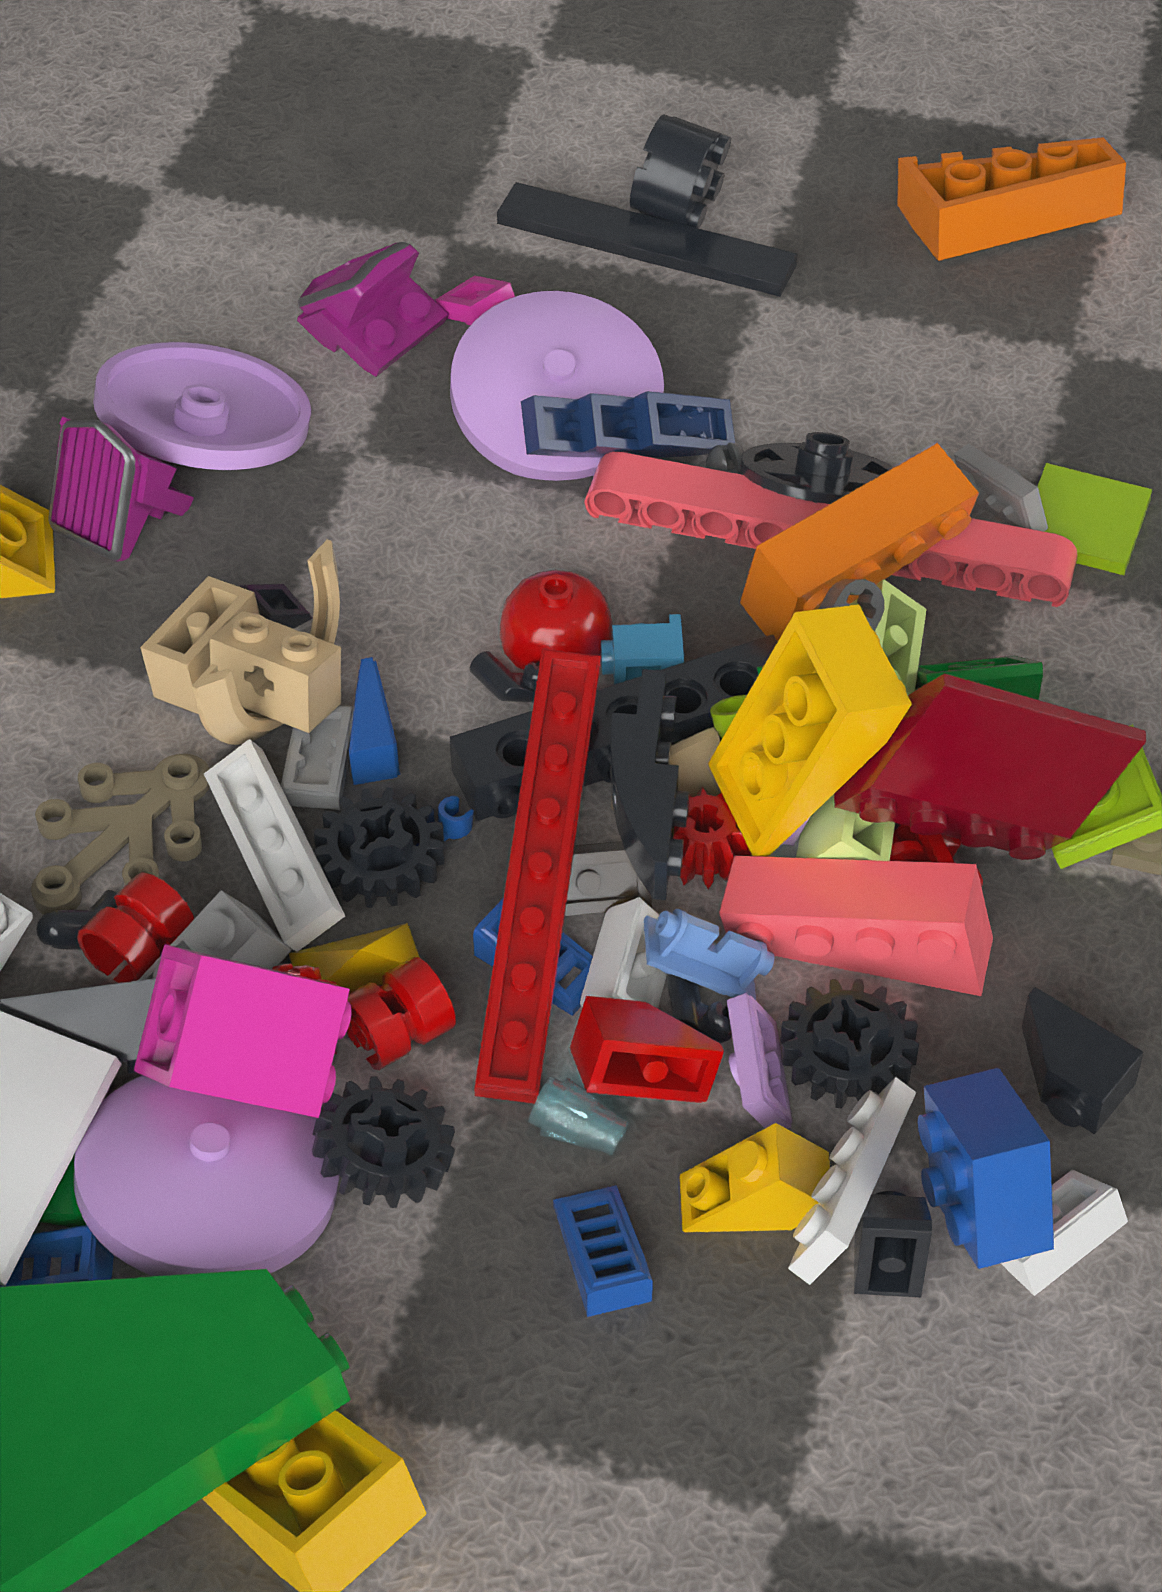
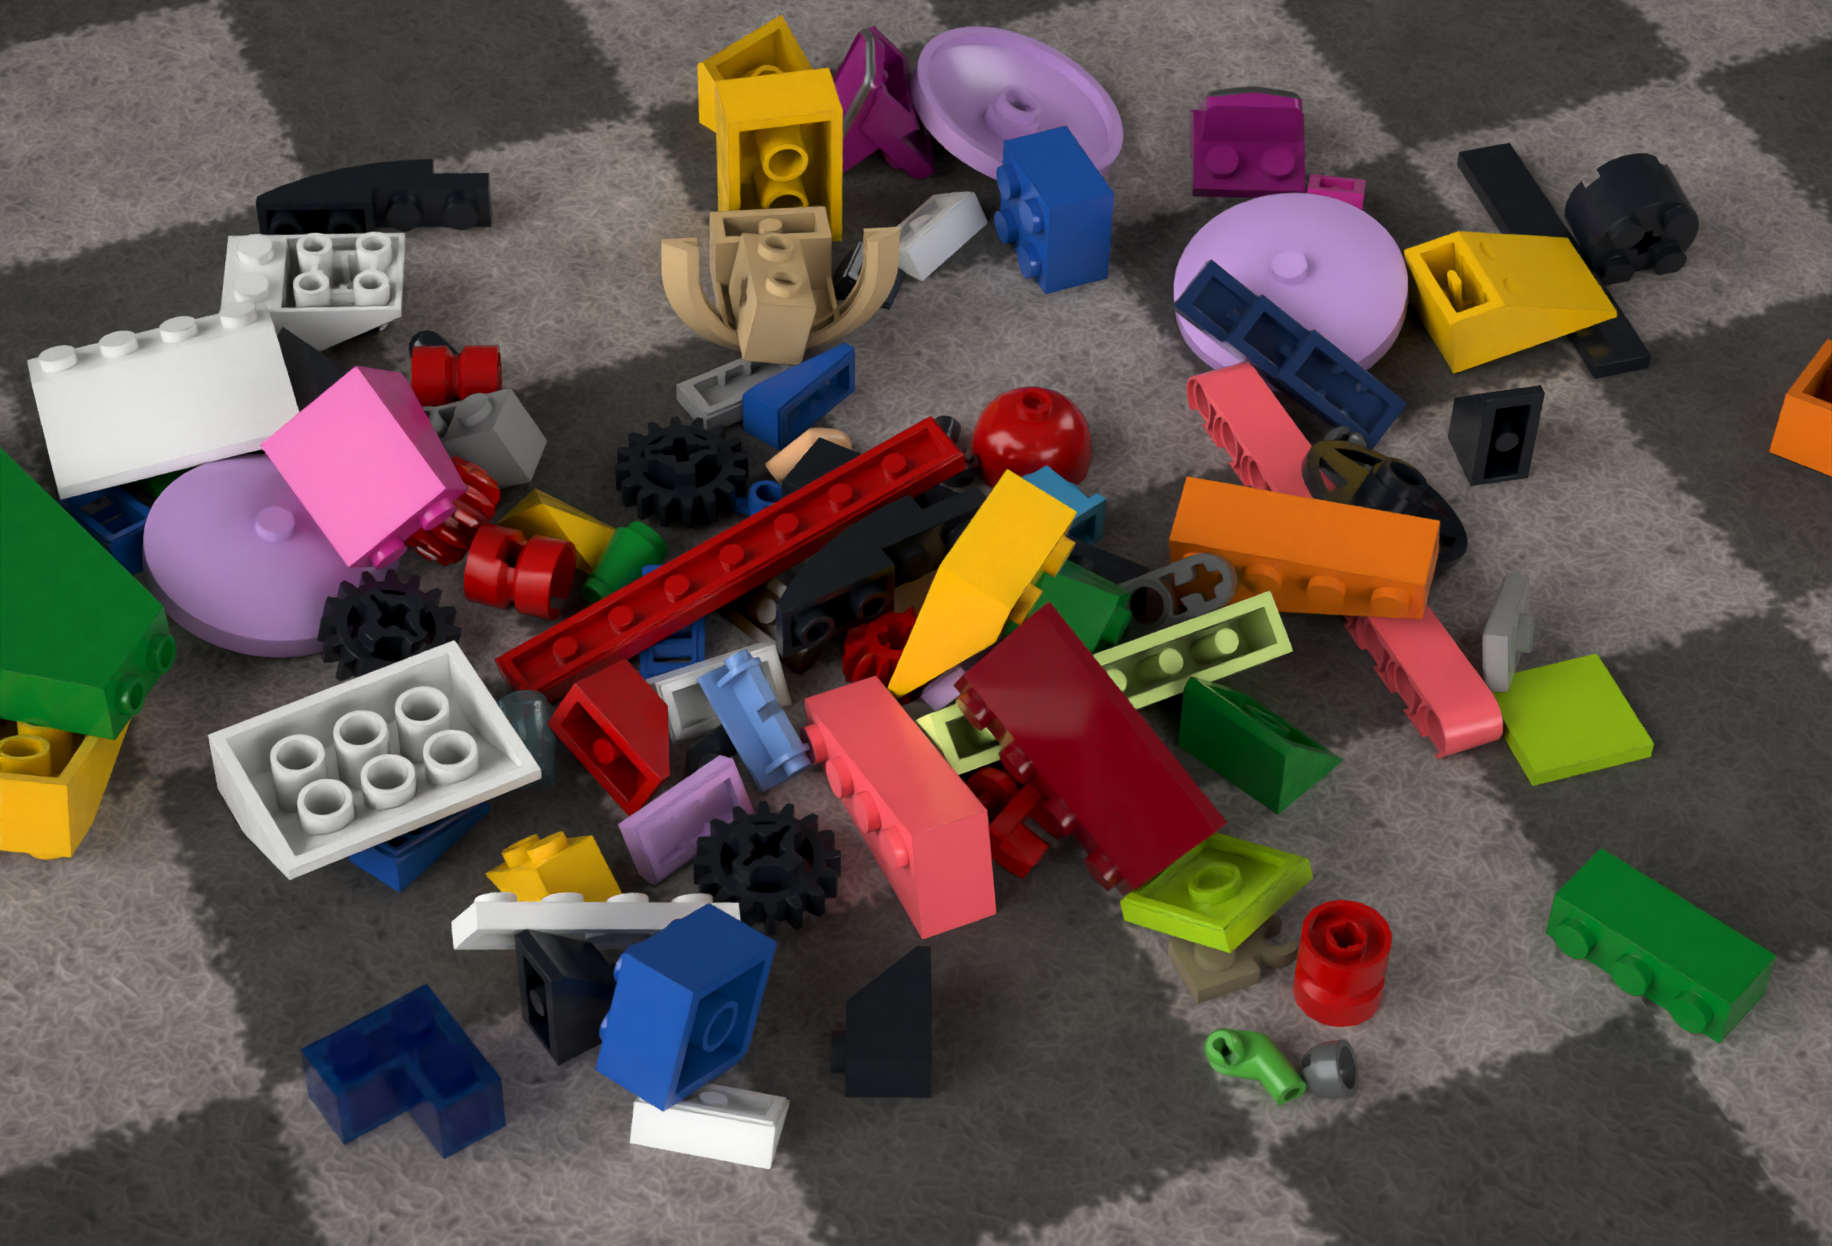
camera: 50 degrees right, 5 degrees down
(121, 825) = (620, 329): dark tan plant -> none
(132, 563) = (780, 143): none -> yellow brick
(257, 541) = (938, 231): none -> white slope
(274, 846) = (617, 411): white plate -> none
(346, 451) = (1054, 210): none -> blue brick
(433, 760) = (787, 458): none -> light nougat arm
(444, 942) = (623, 560): none -> green cone
(544, 1236) = (368, 760): none -> white slope
(680, 283) = (1500, 293): none -> yellow slope
(805, 370) = (1496, 433): none -> black slope
(876, 1383) = (402, 1061): none -> clear blue brick

